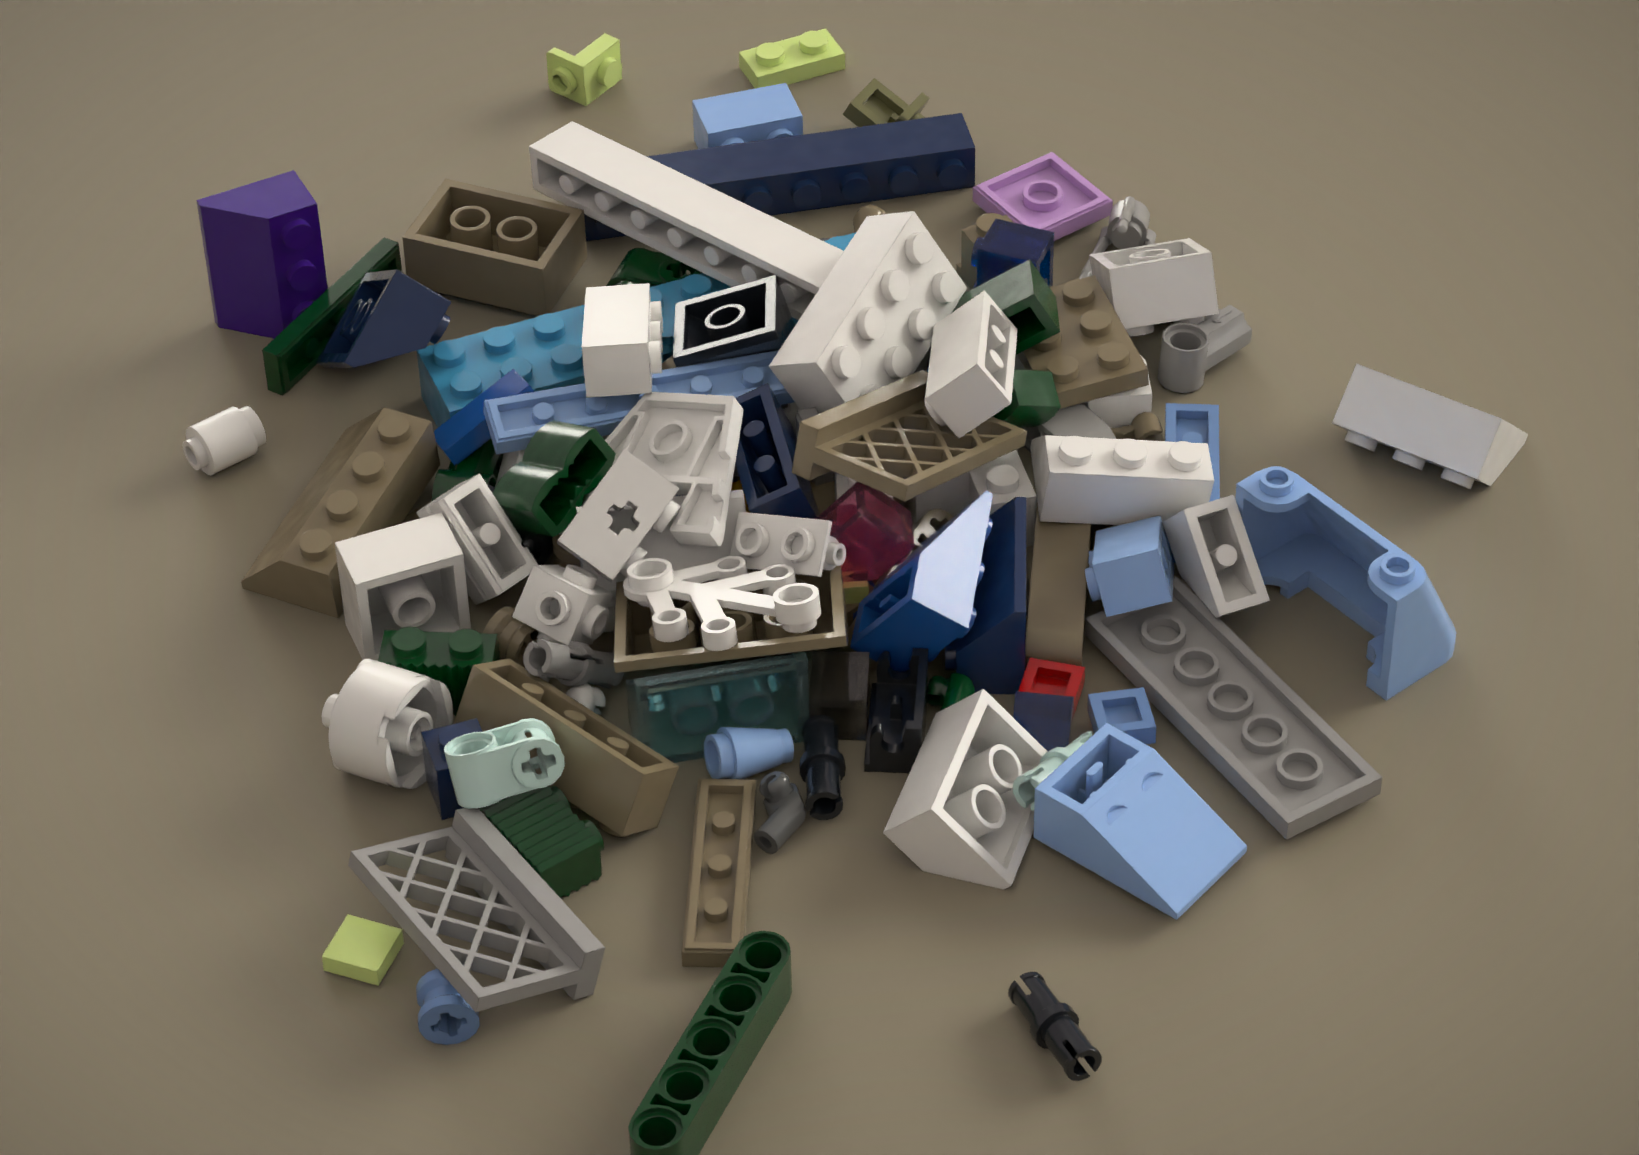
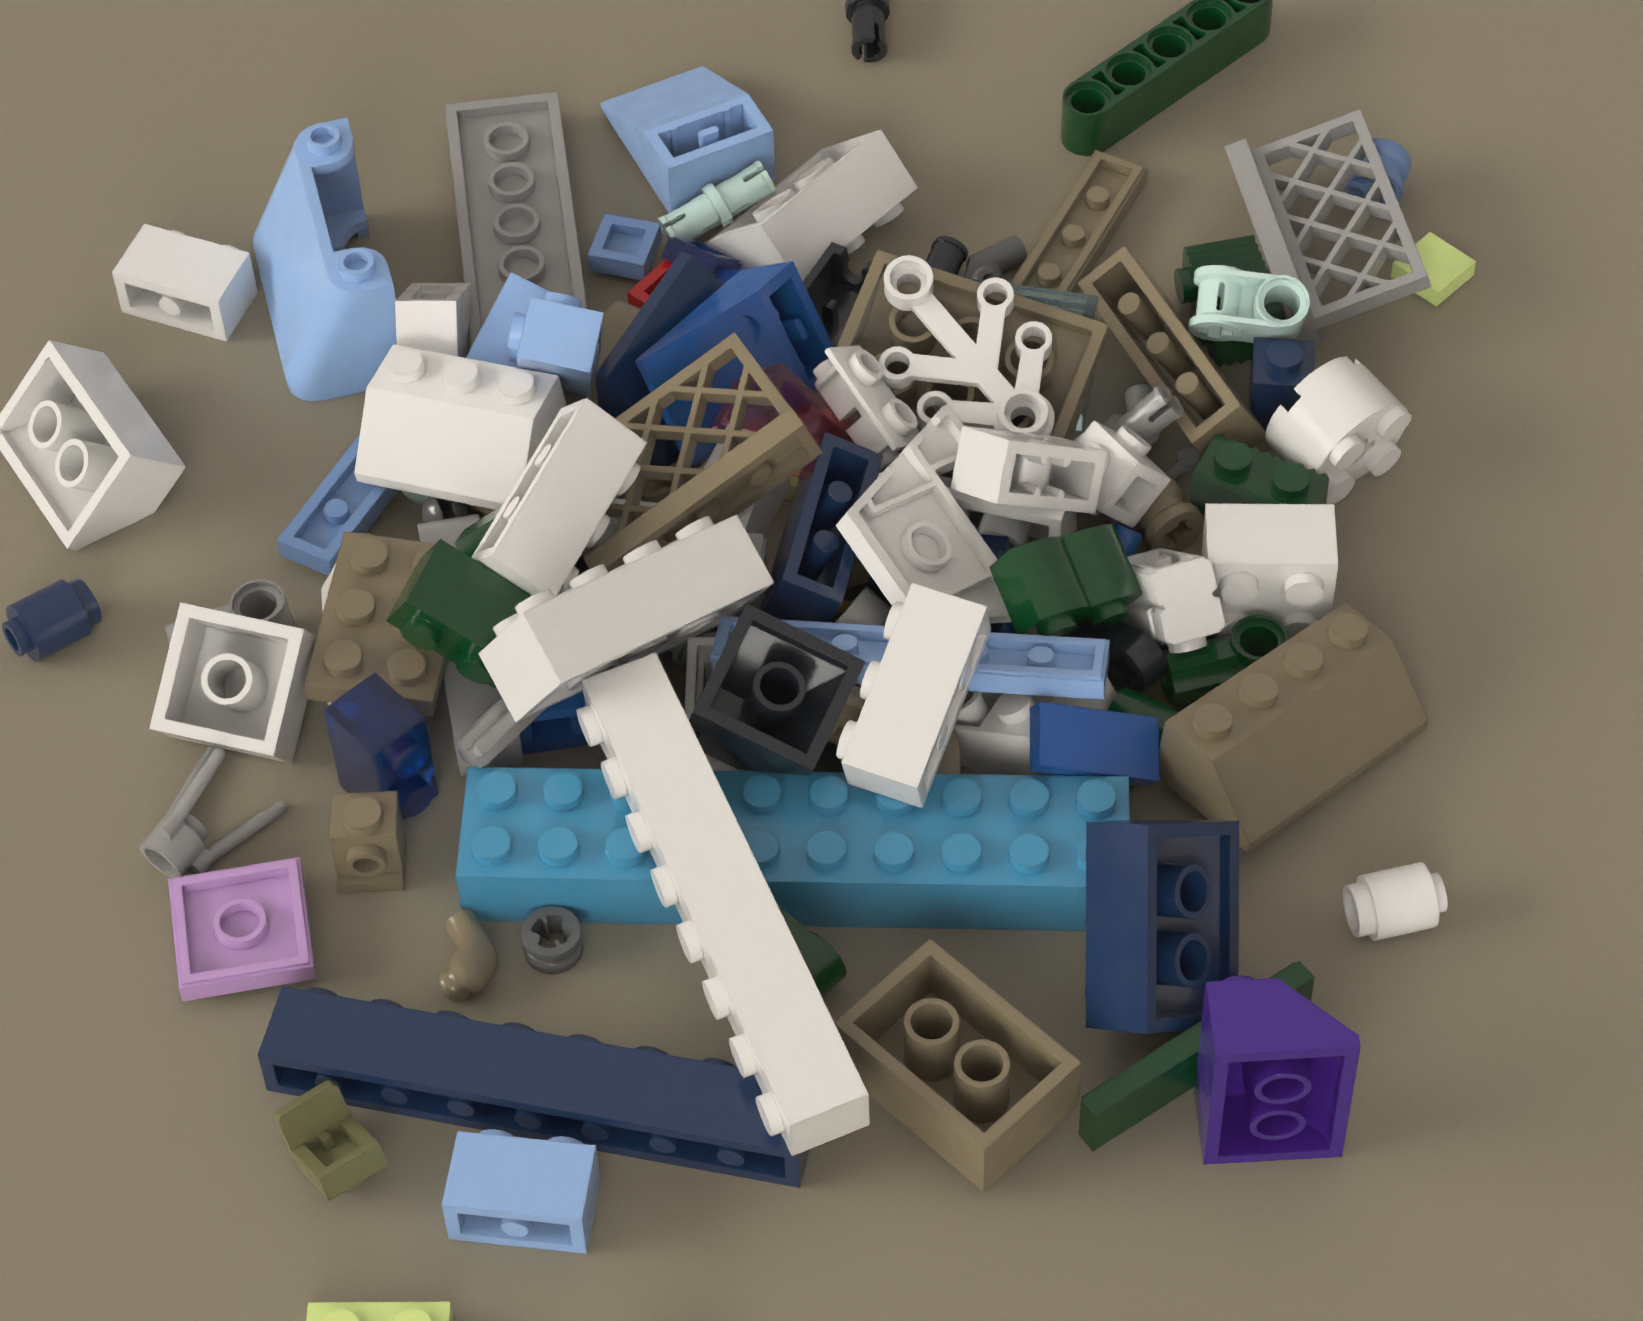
camera: 155 degrees left, 10 degrees up
(1069, 498) = (558, 340): none -> light blue brick
(1342, 317) = (51, 619): none -> dark blue brick
(1476, 561) = (185, 282): none -> white brick

